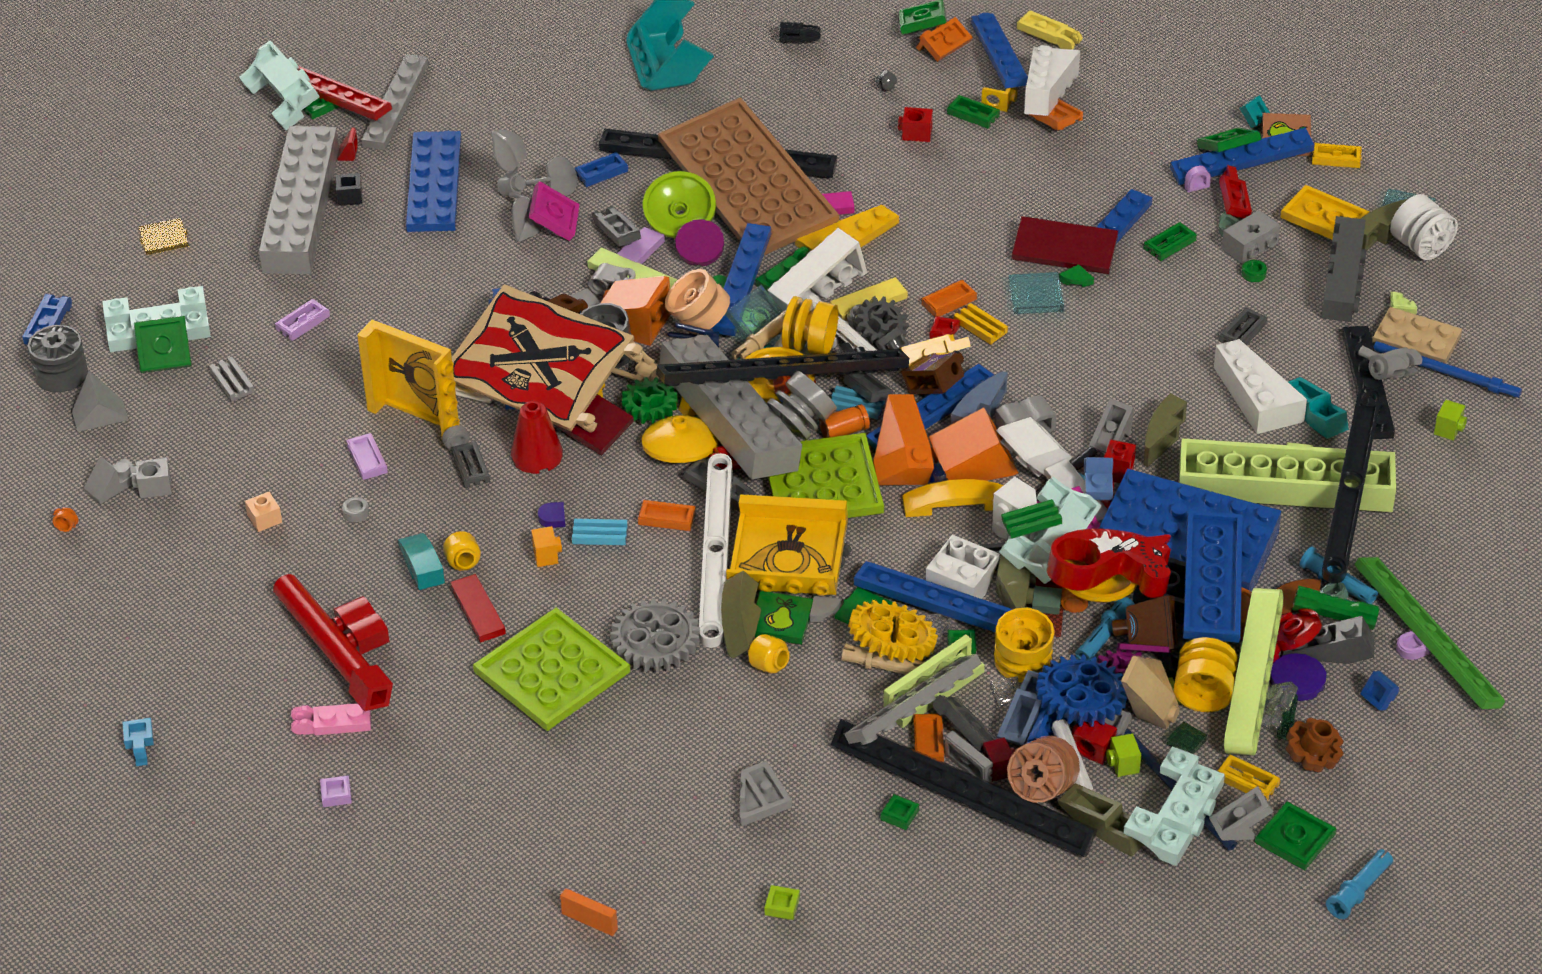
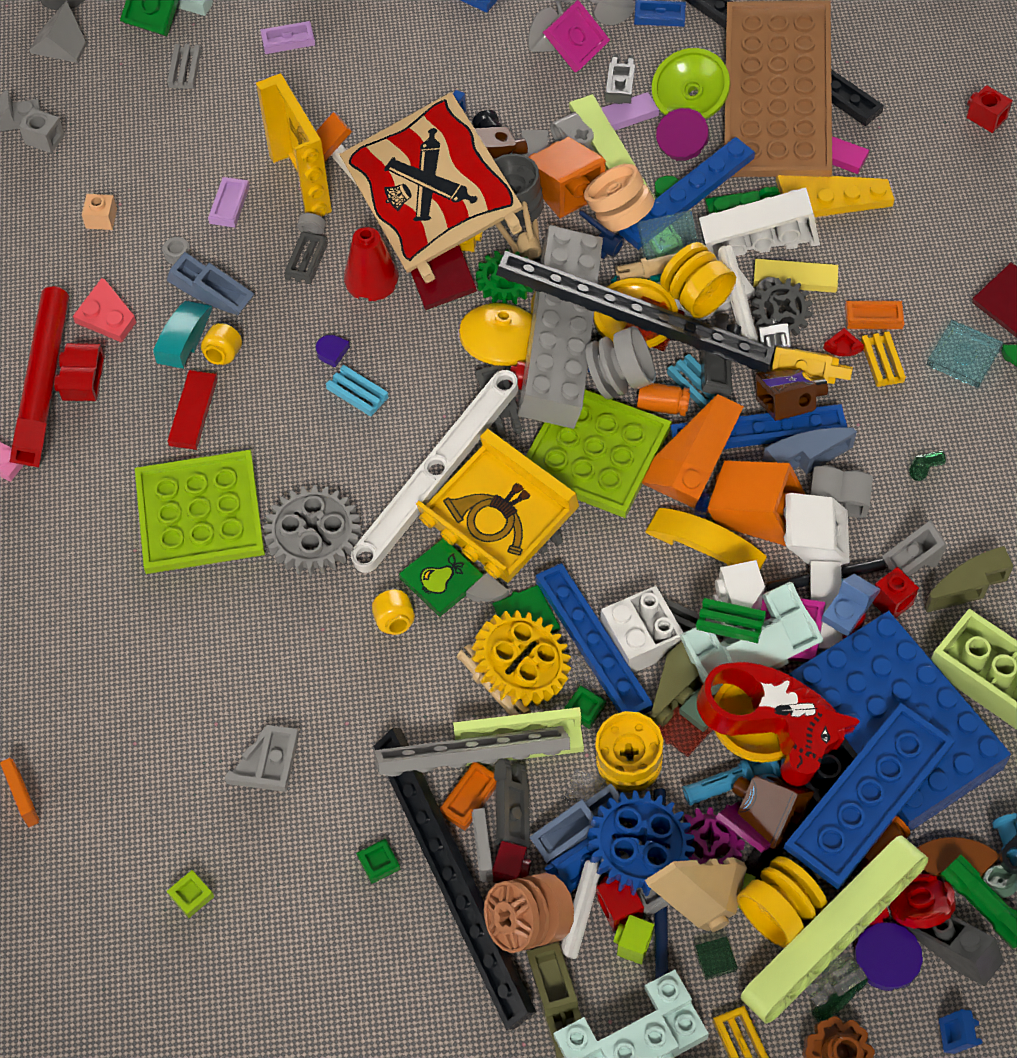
camera: 35 degrees right, 15 degrees up
(338, 579) = (105, 313): none -> coral wing
(410, 517) = (209, 285): none -> sand blue slope
(545, 546) = (294, 380): light orange plate -> none
(666, 515) = (429, 406): orange tile -> none
(739, 613) = (399, 553): olive slope -> none
(886, 81) = (997, 47): dark grey hinge -> none
(1067, 373) = (923, 462): none -> clear green arm

